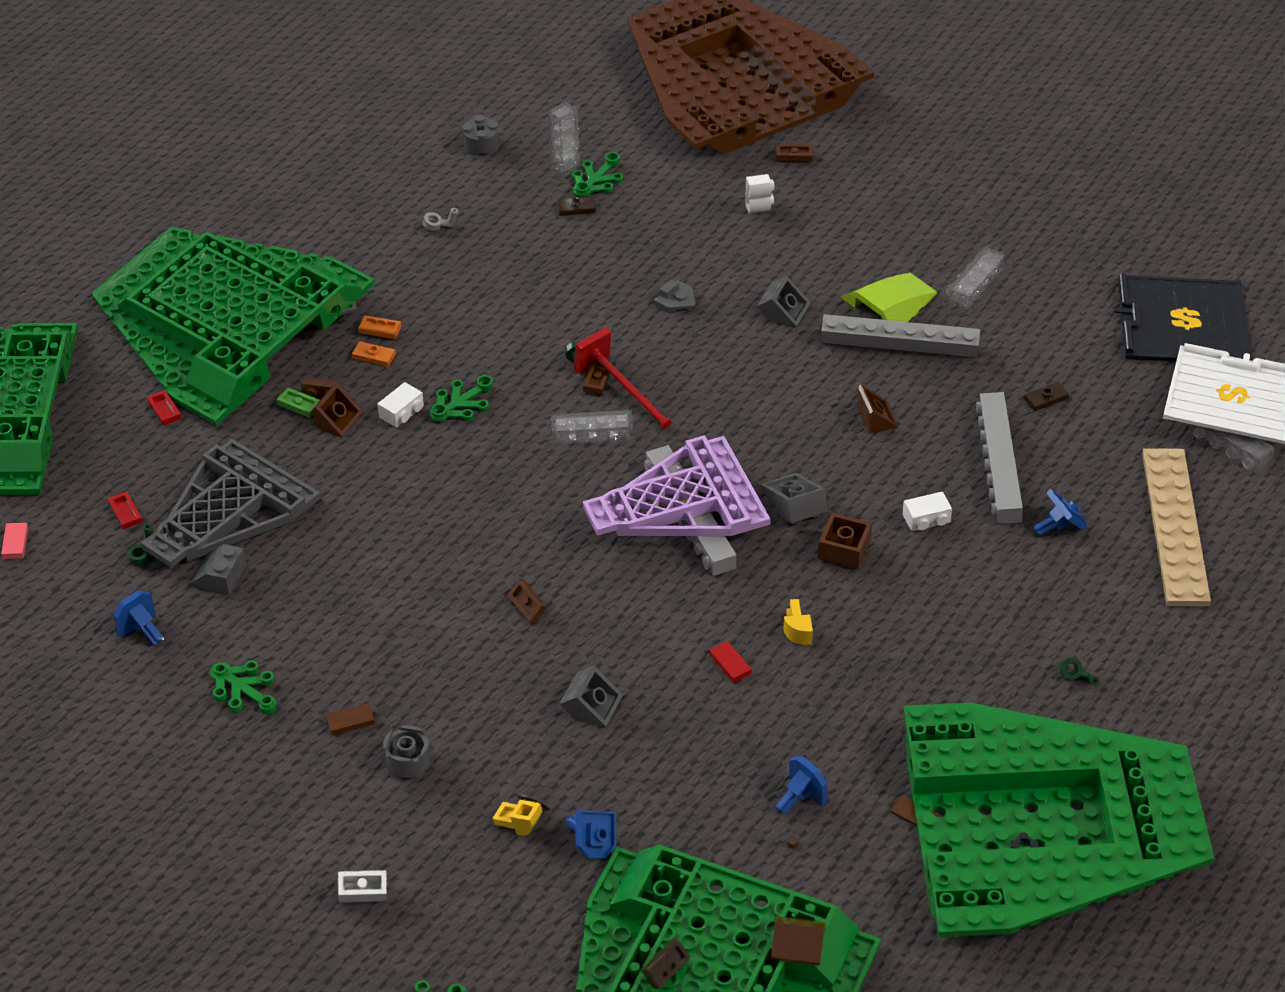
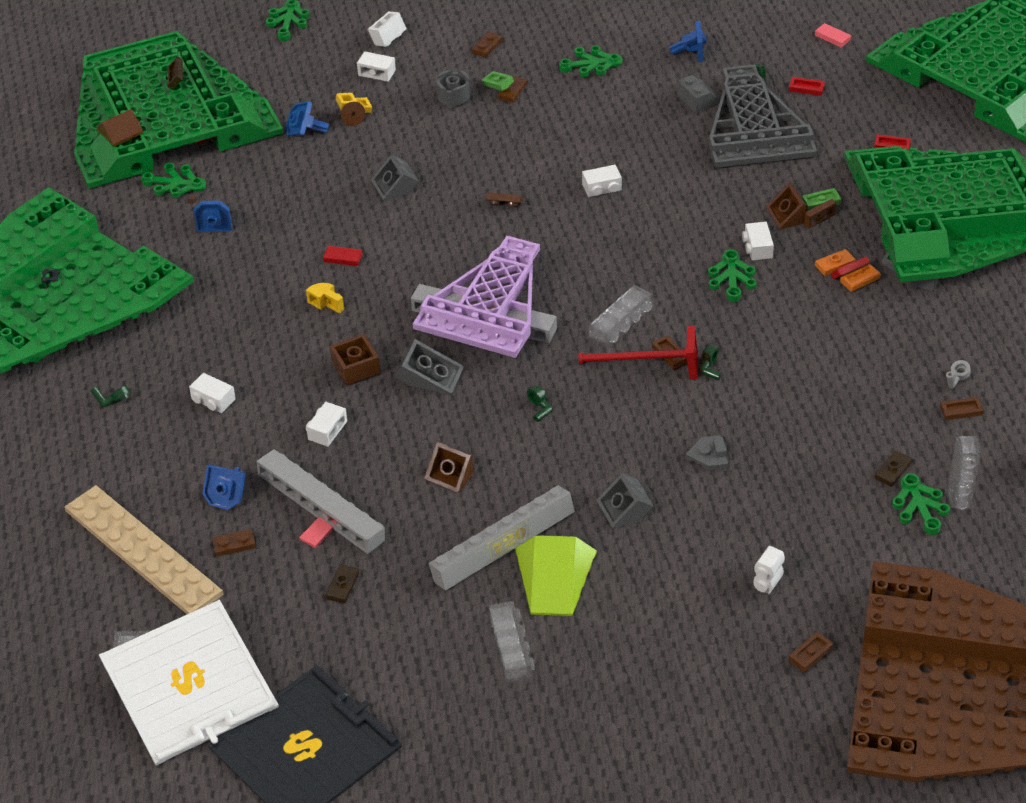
camera: 135 degrees right, 0 degrees up
(292, 796) = (487, 44): none -> reddish brown plate
(356, 728) = (498, 81): none -> bright green plate
(376, 335) = (850, 267): none -> red tile
(428, 551) = (601, 180): none -> white brick
(432, 852) = (376, 66): none -> white brick
(471, 206) = (961, 408): none -> reddish brown tile
(739, 415) = (537, 396): none -> dark green plate
(788, 872) = (194, 183): none -> green plant
(992, 607) = (212, 393): none -> white brick
(1026, 445) = (317, 532): none -> coral tile
(1097, 480) = (234, 542): none -> reddish brown plate

